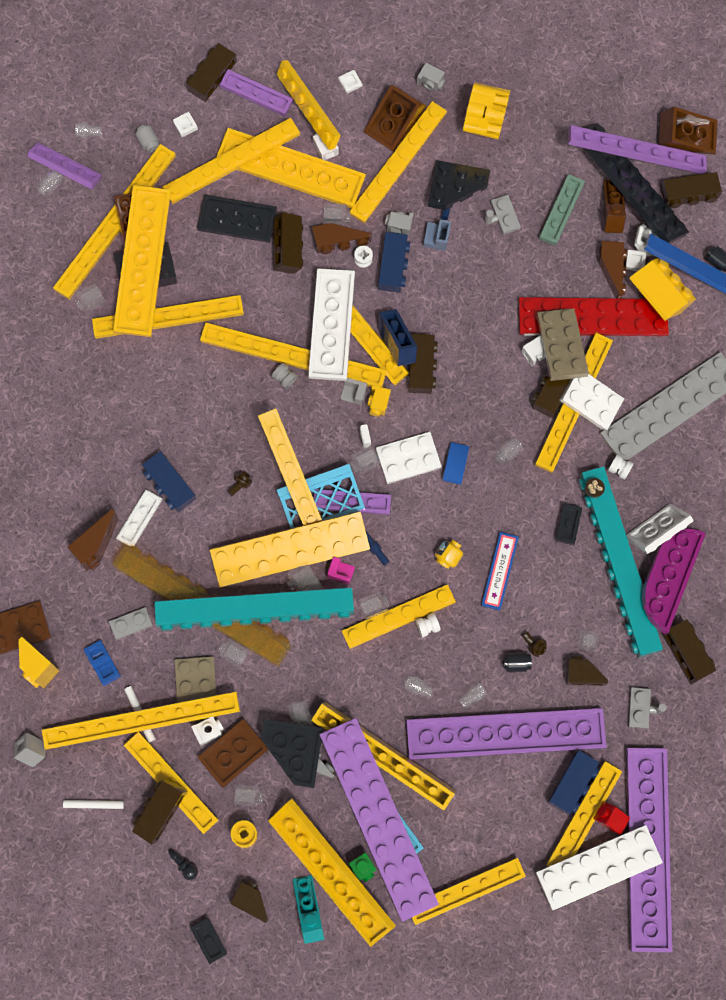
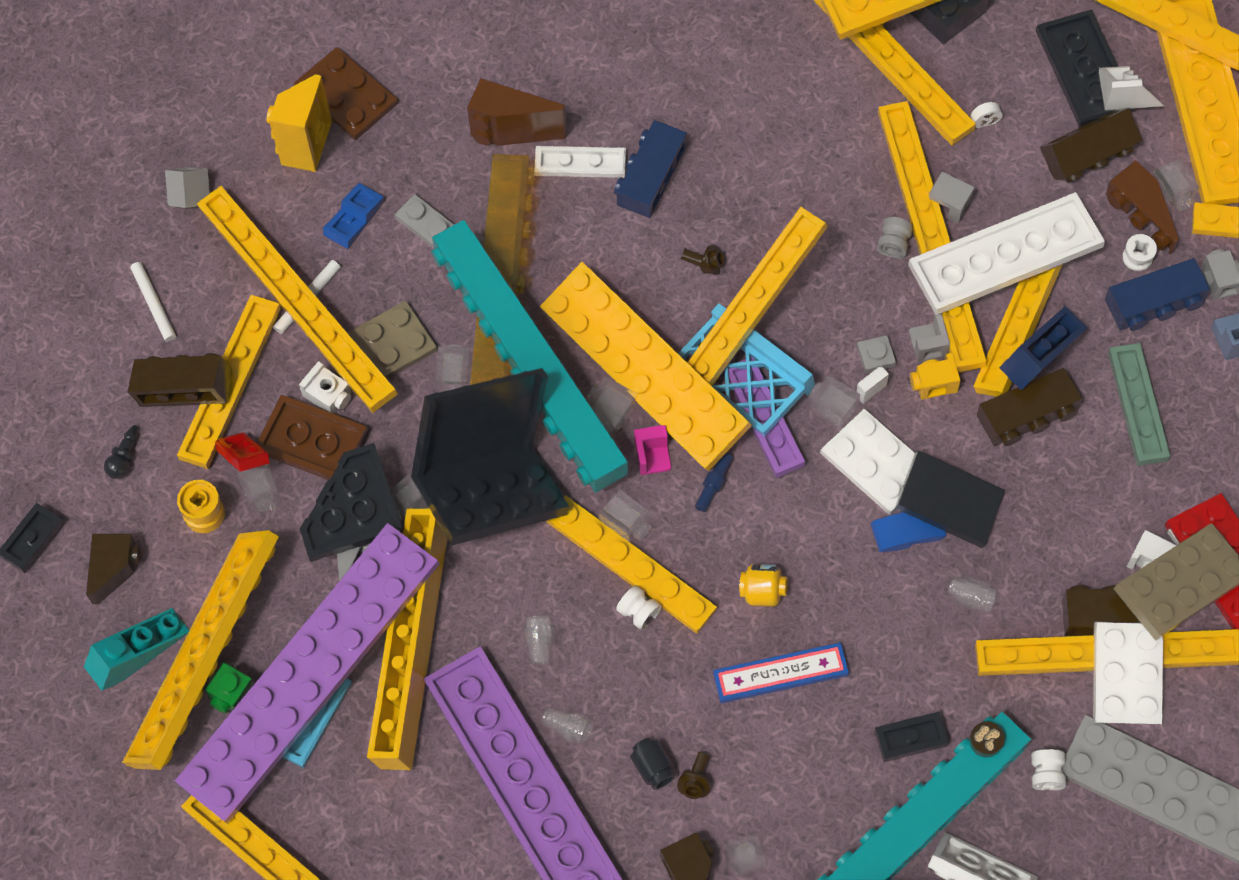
camera: 70 degrees right, 10 degrees down
(225, 795) = (242, 451): none -> red plate
(237, 286) = (986, 114): none -> white tile
(264, 207) = (1124, 89): none -> white slope
(277, 331) = (952, 194): none -> light grey panel
(313, 667) = (480, 461): none -> black bracket
(346, 424) = (876, 353): none -> light grey plate
(448, 308) = (1138, 404): none -> sand green plate
(451, 433) = (949, 499): none -> black tile

